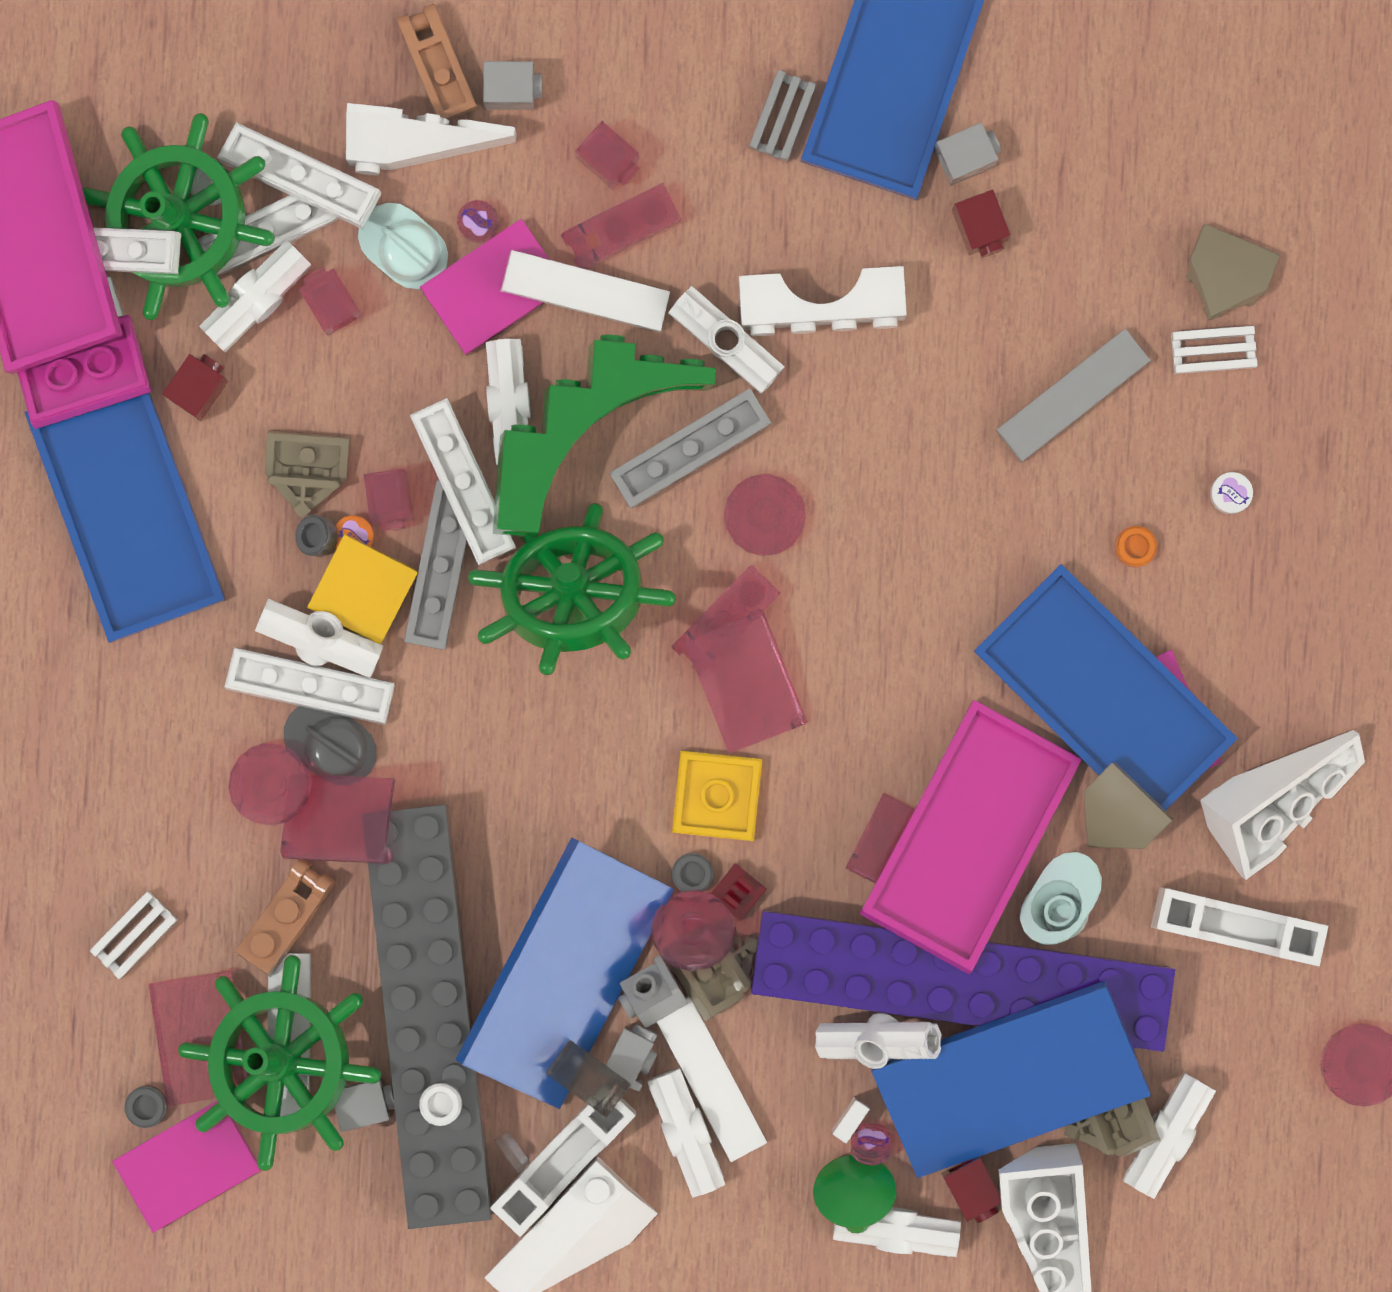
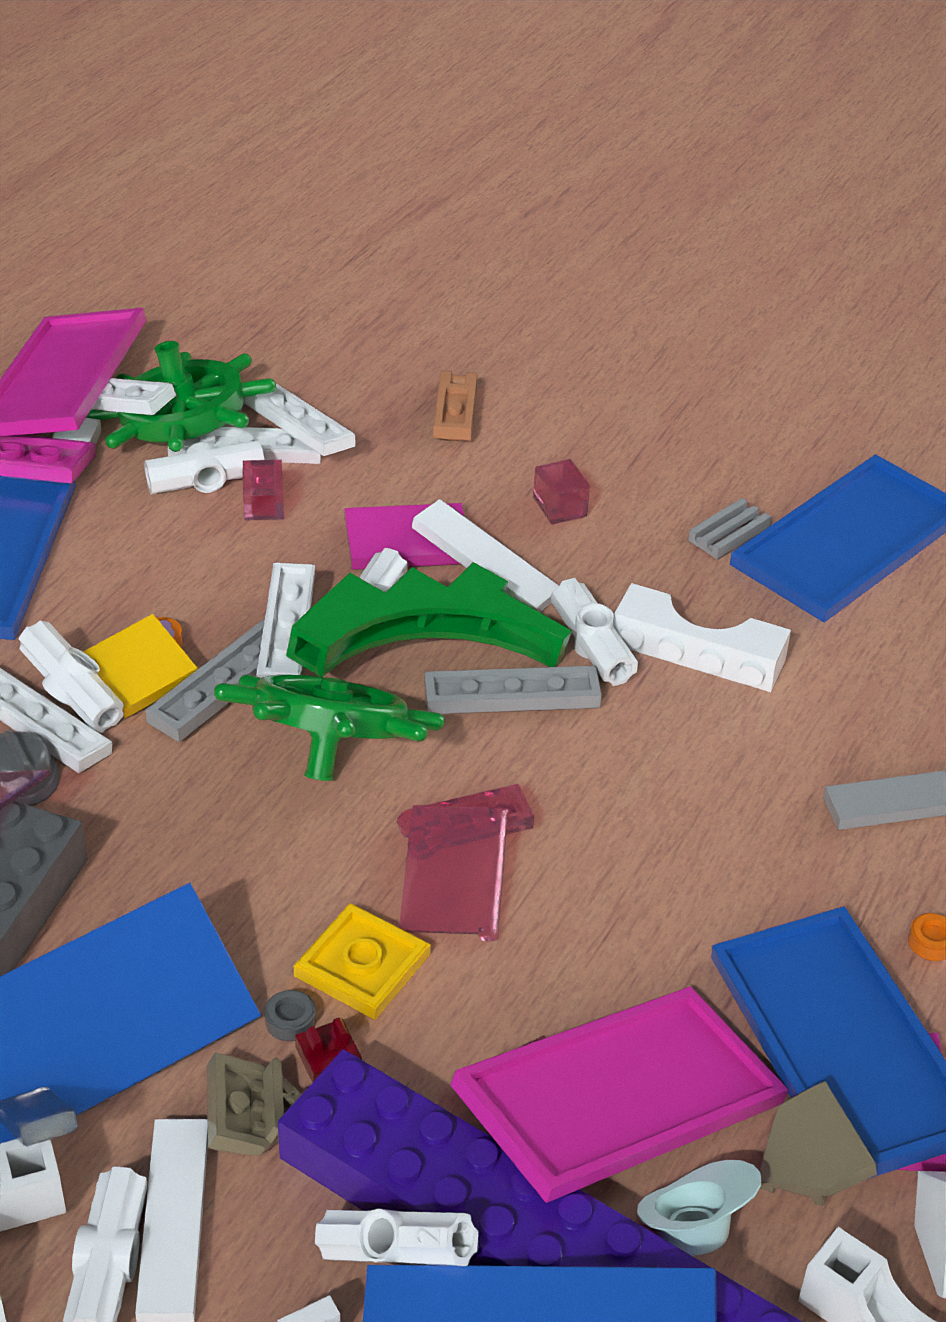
camera: 25 degrees right, 45 degrees down
(196, 385) = (109, 495): dark red brick -> none
(306, 466) = (161, 579): dark tan slope -> none
(316, 535) = (126, 616): dark grey tile -> none
(389, 140) = (409, 424): white wedge -> none
(389, 499) = (212, 616): clear pink brick -> none
(403, 245) = (349, 486): light aqua piece -> none
(477, 221) = (422, 492): clear pink tile -> none
(511, 85) = (506, 430): light grey brick -> none
(622, 226) = (547, 536): clear pink plate -> none
(633, 1054) = (101, 1141): light grey brick -> none
(652, 993) = (168, 1090): light grey brick -> none
(693, 931) = (256, 1048): clear pink tile -> none
(764, 515) = (554, 765): clear pink tile -> none
(967, 153) = (889, 597): light grey brick -> none
(981, 224) = (880, 642): dark red brick -> none

